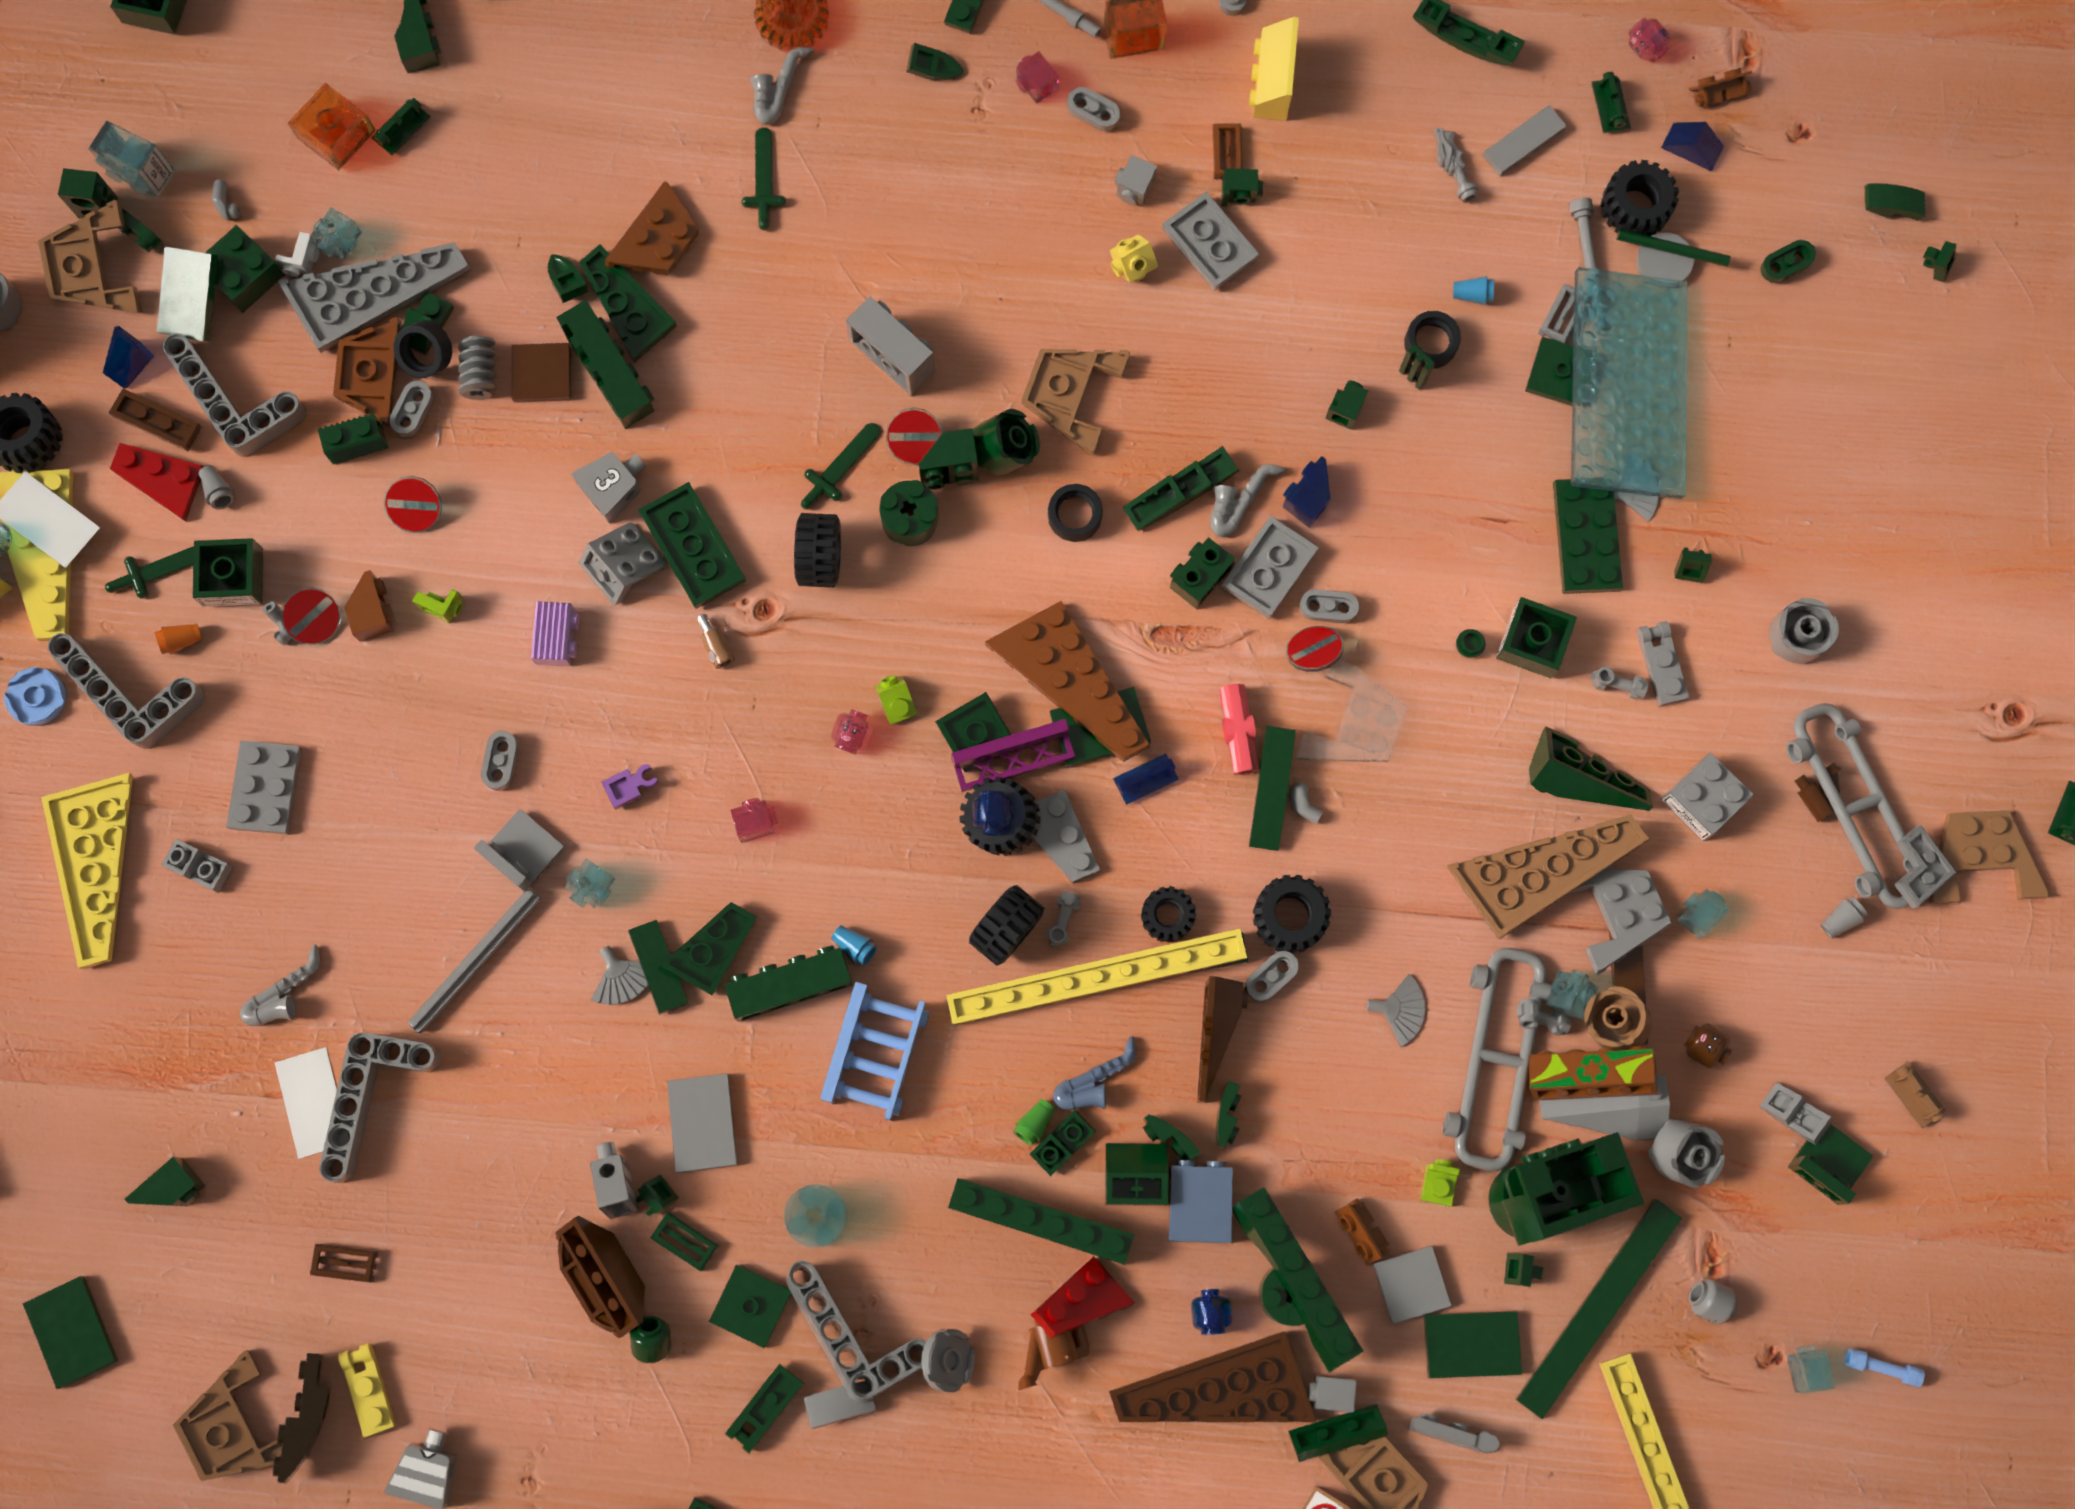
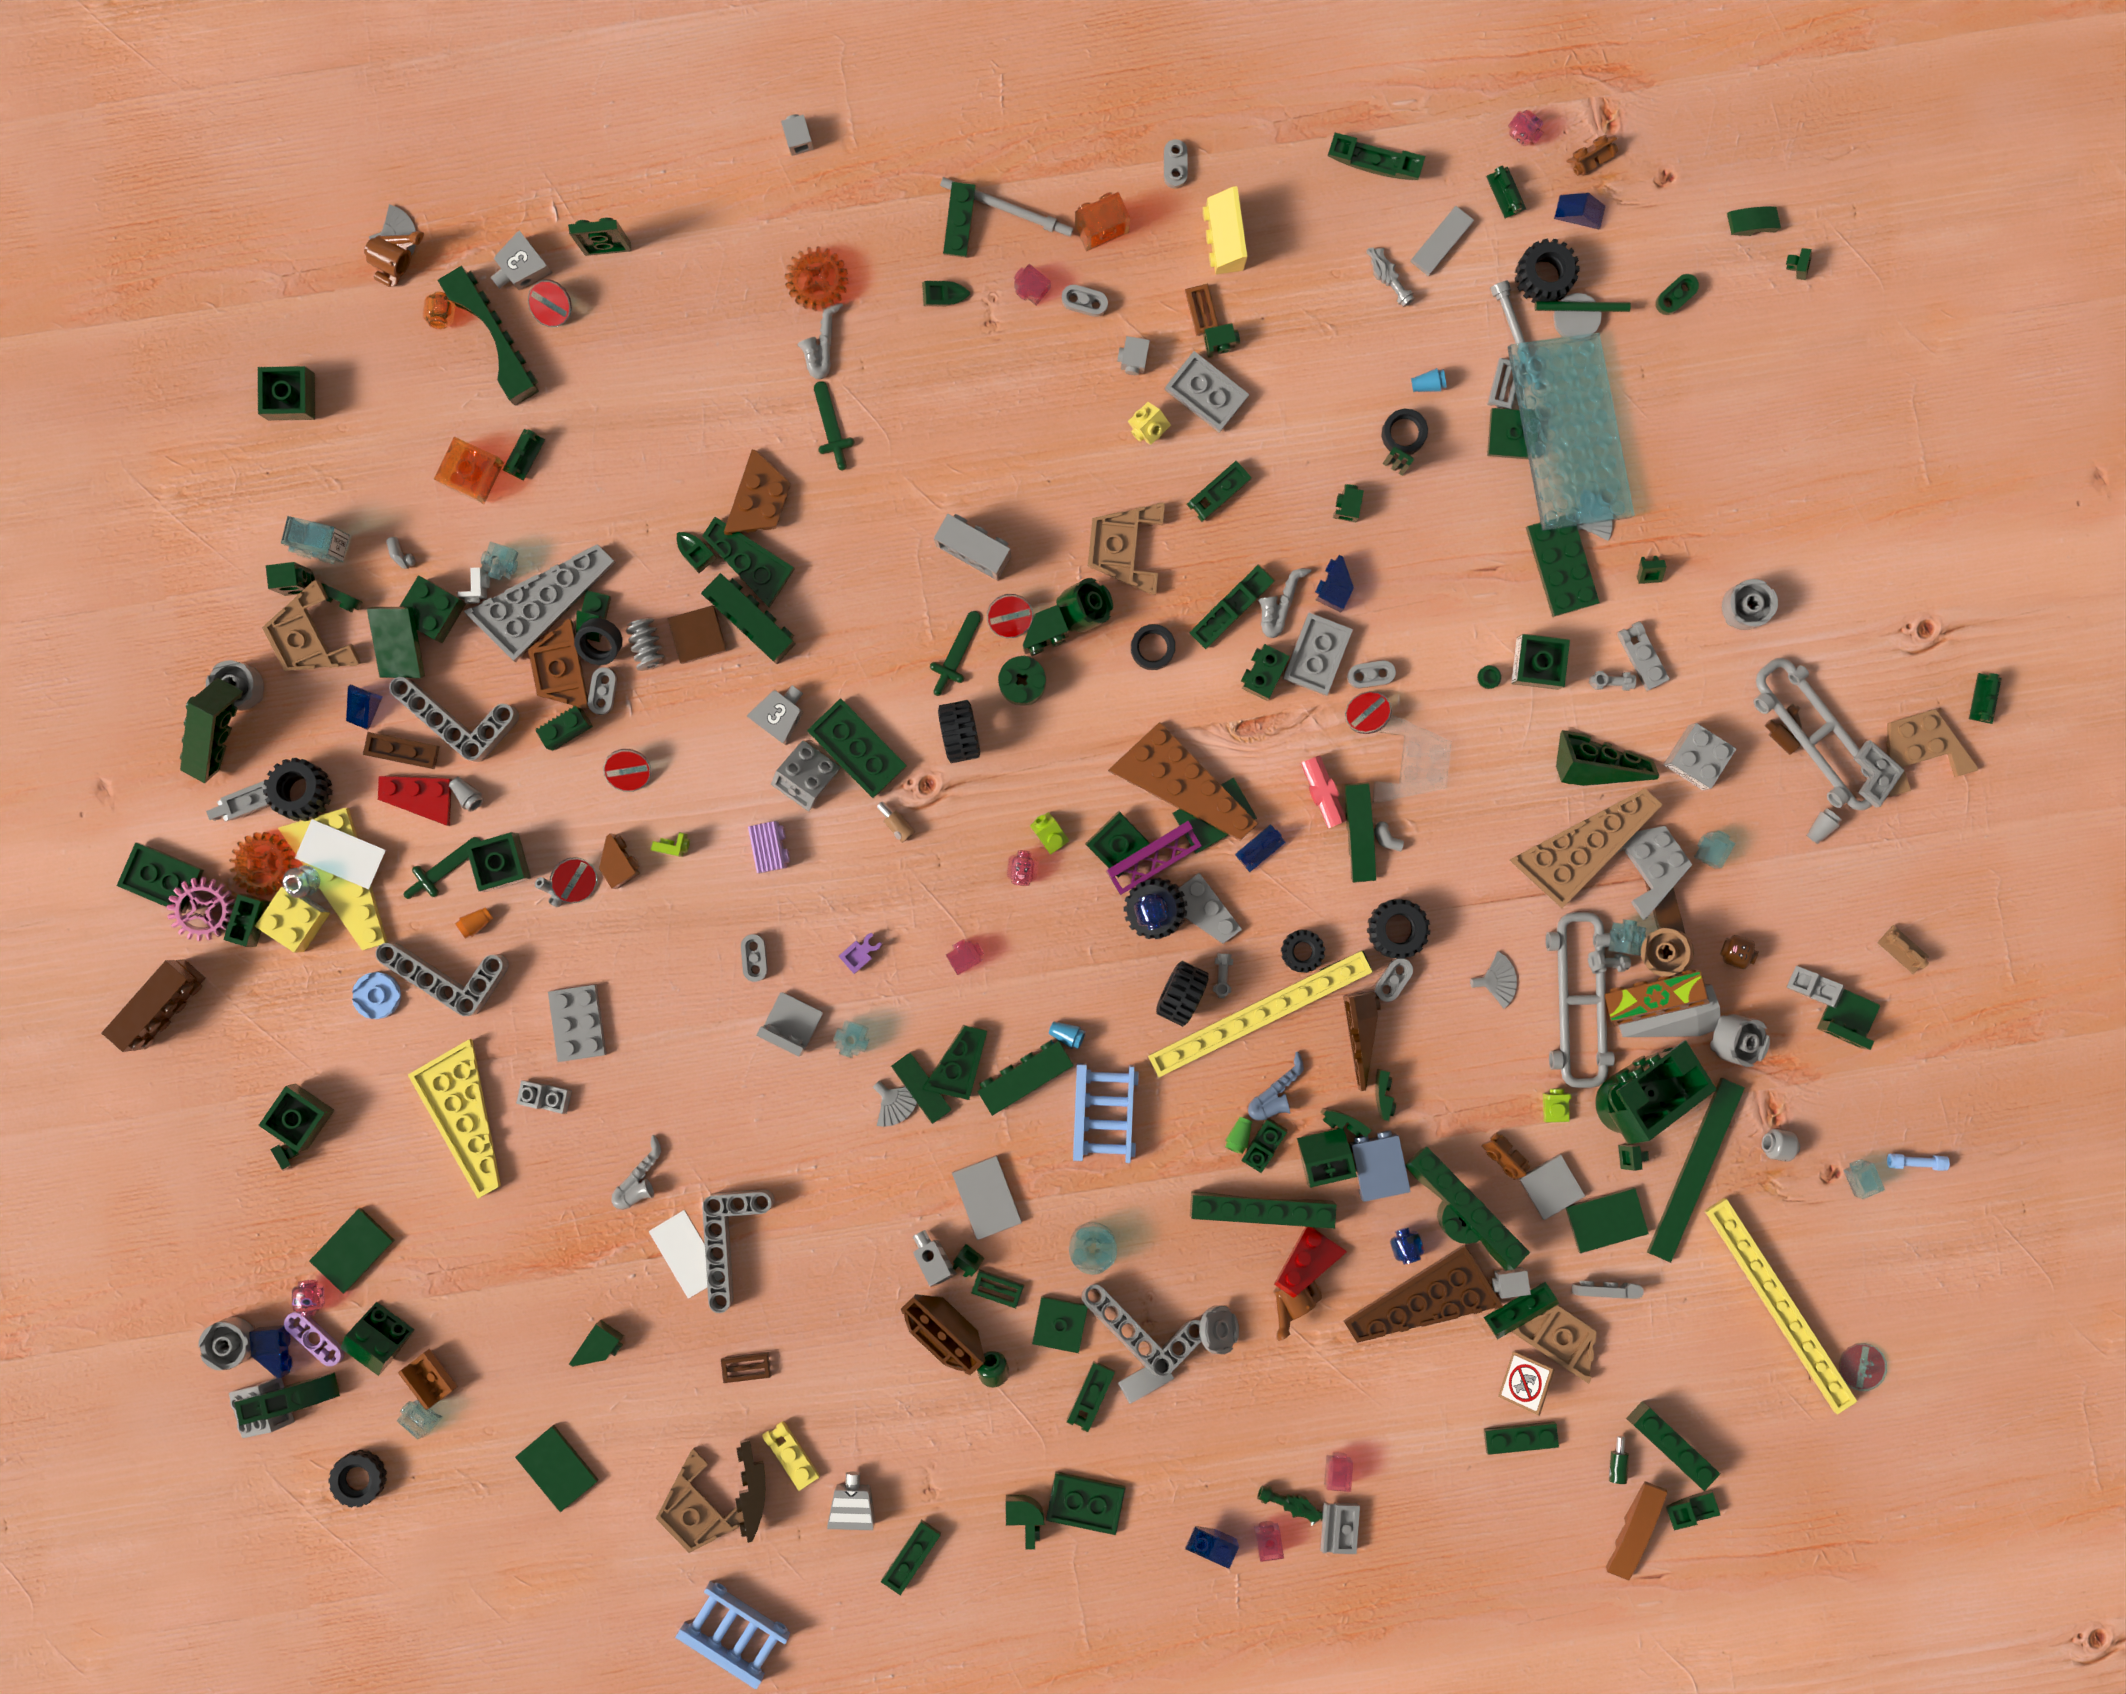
camera: 10 degrees left, 10 degrees up
(474, 961) = (779, 1117): light grey axle -> none
(1198, 354) = (1219, 490): none -> dark green plate

